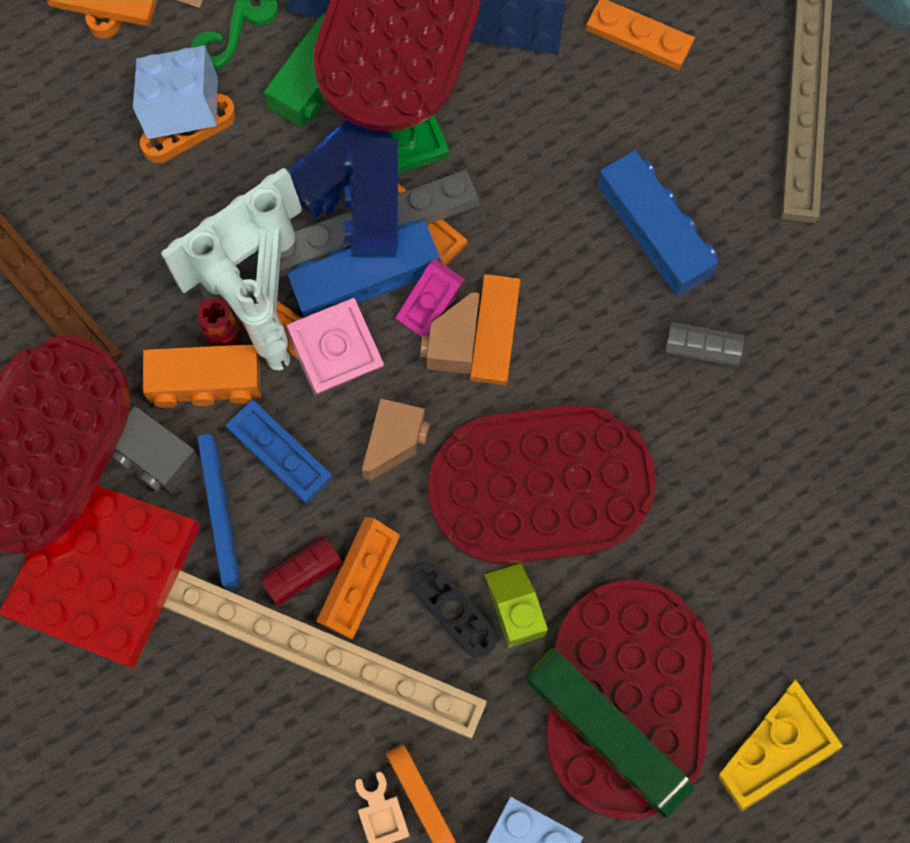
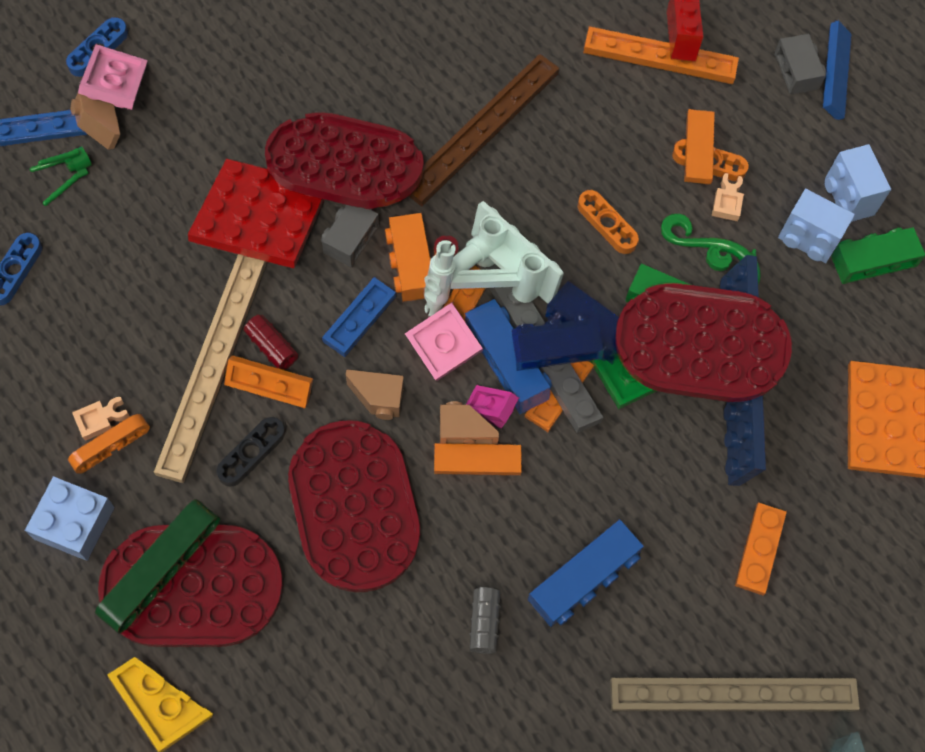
camera: 80 degrees right, 5 degrees down
(175, 92) = (628, 204): light blue brick -> none
(219, 512) = (309, 282): blue tile -> none
(516, 605) = (256, 493): lime slope -> none

